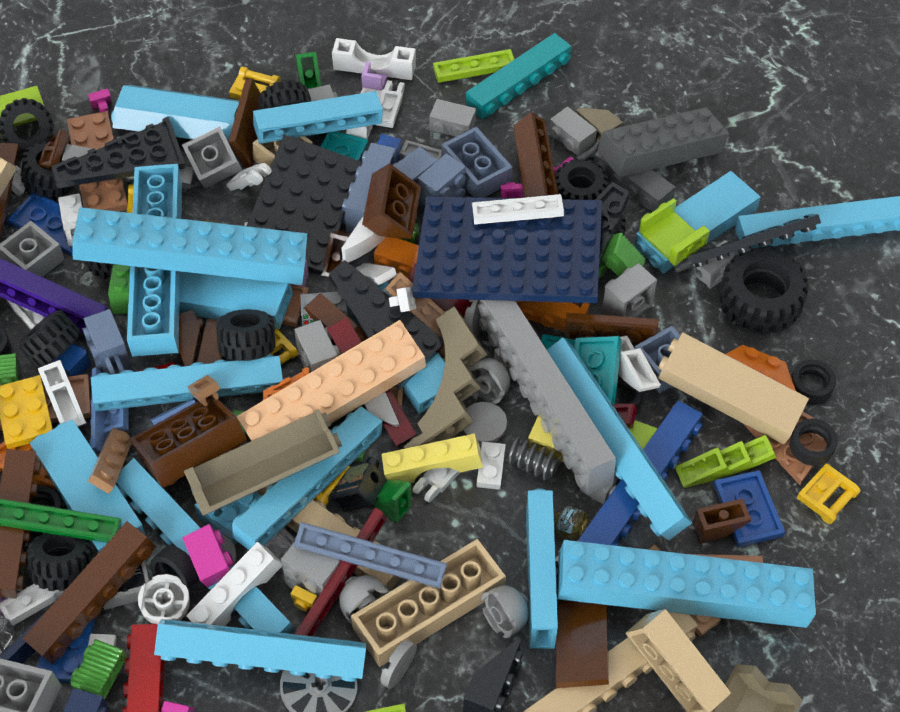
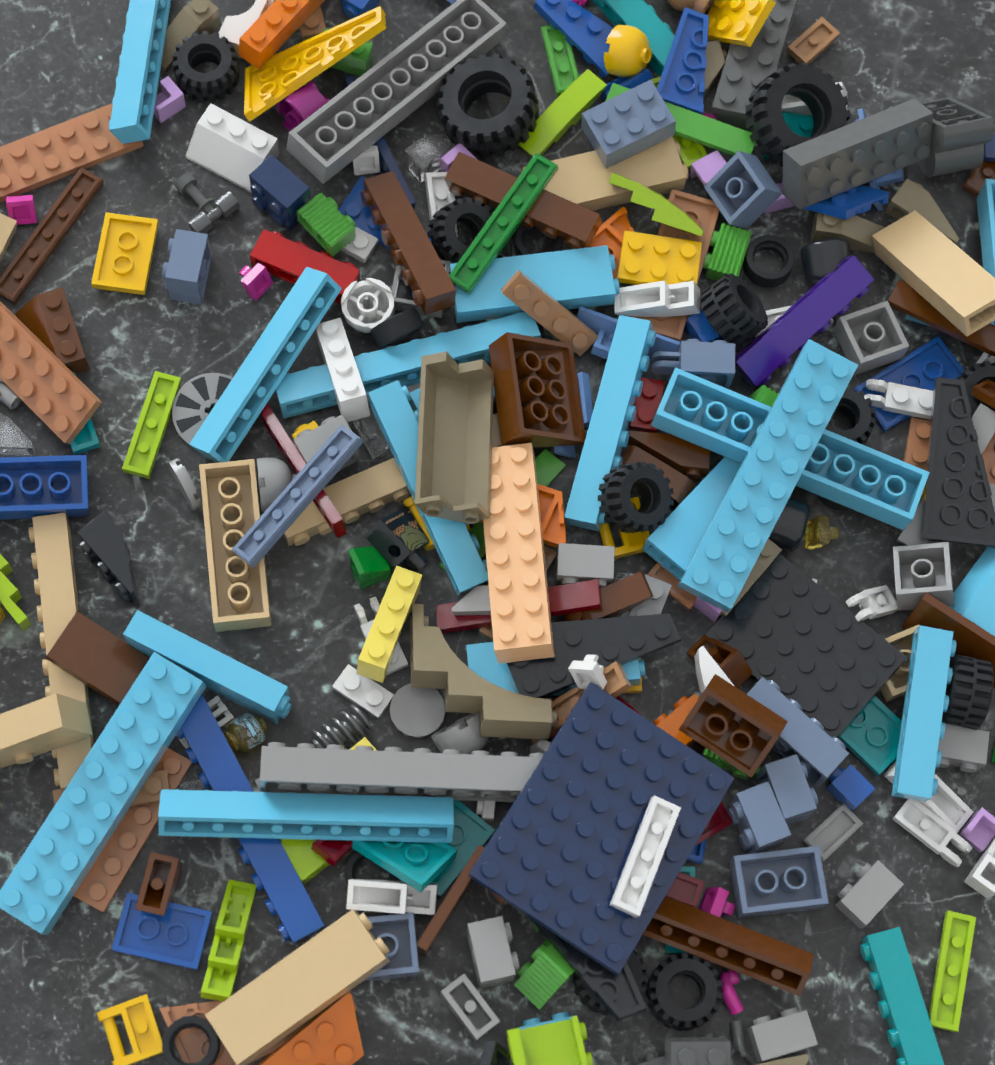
camera: 110 degrees right, 15 degrees up
(203, 388) = (583, 425): medium nougat tile -> none
(208, 554) = (386, 355): dark pink brick -> none
(377, 273) = (663, 674): white tile -> none
(505, 609) = (185, 613): light grey cylinder -> none
(671, 294) = (469, 1007): none -> light grey brick

